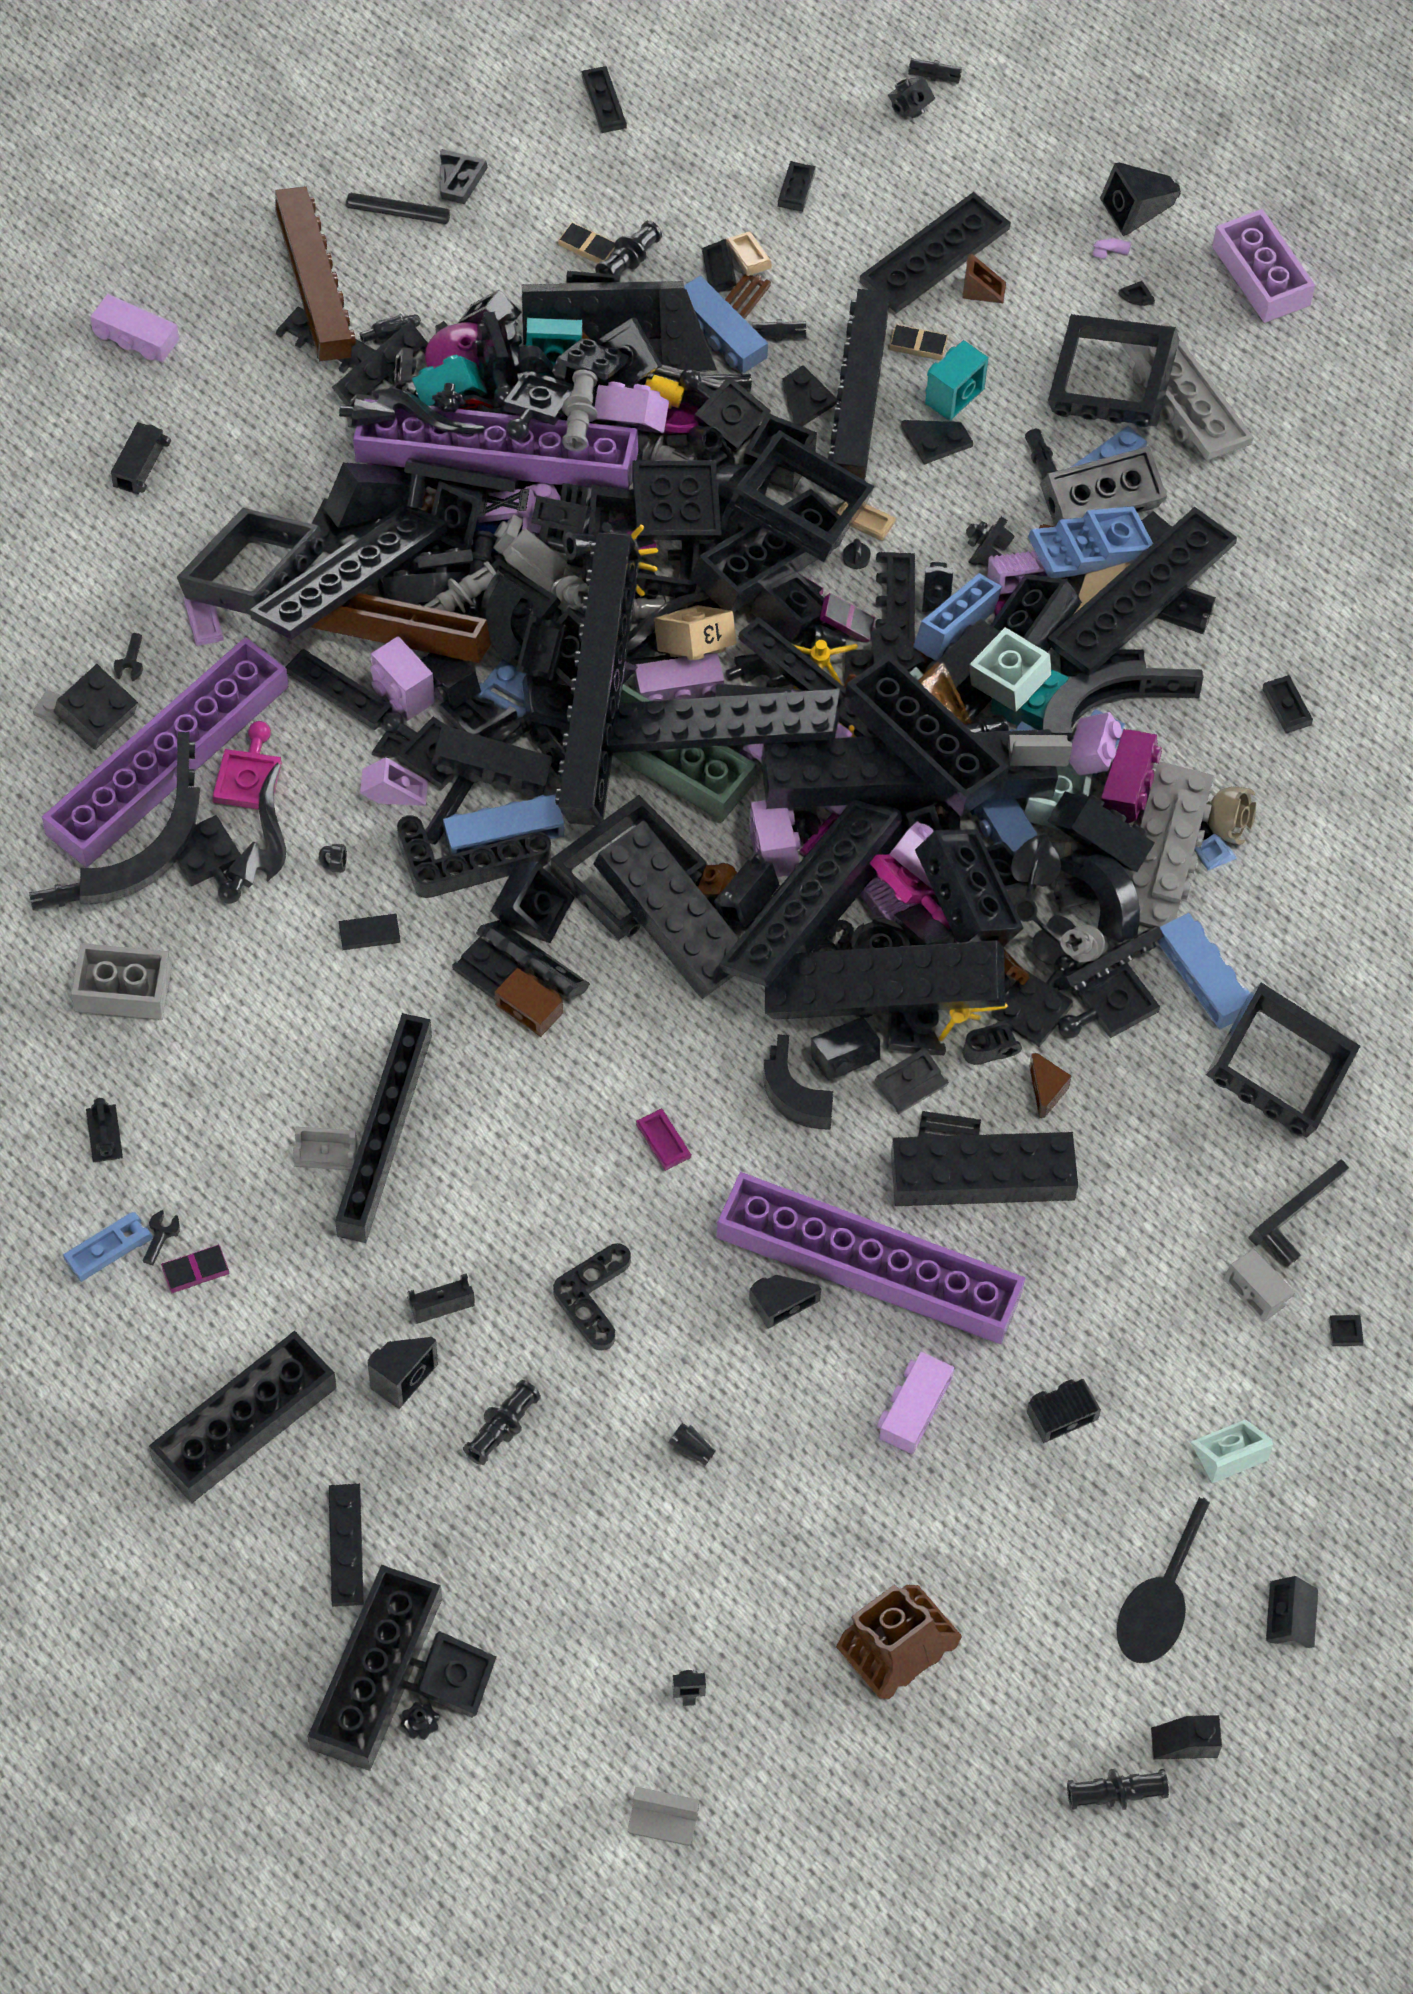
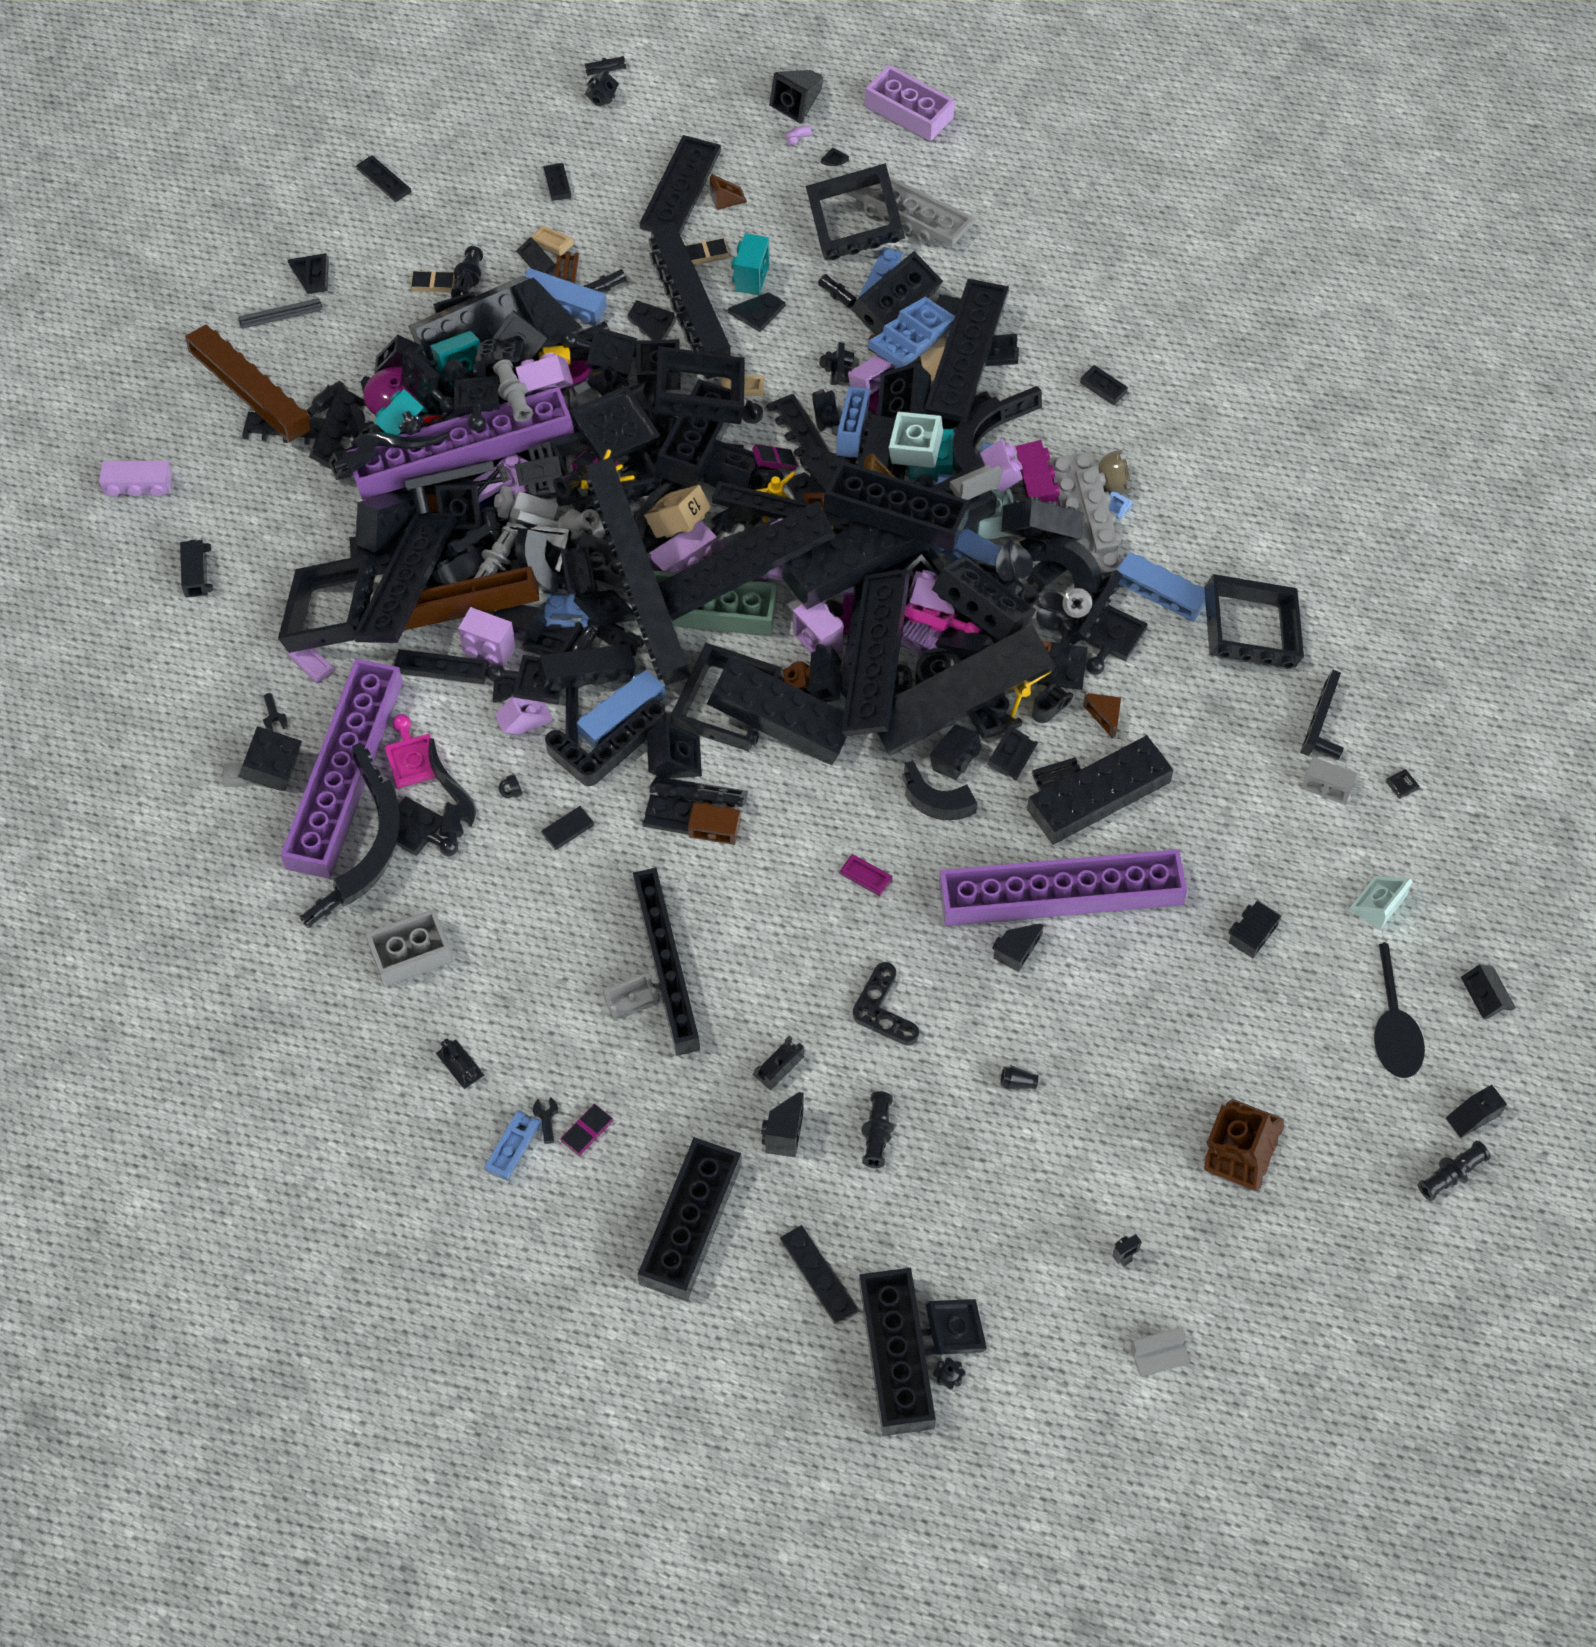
camera: 25 degrees left, 0 degrees up
(915, 1402) = (1153, 973): lavender brick -> none

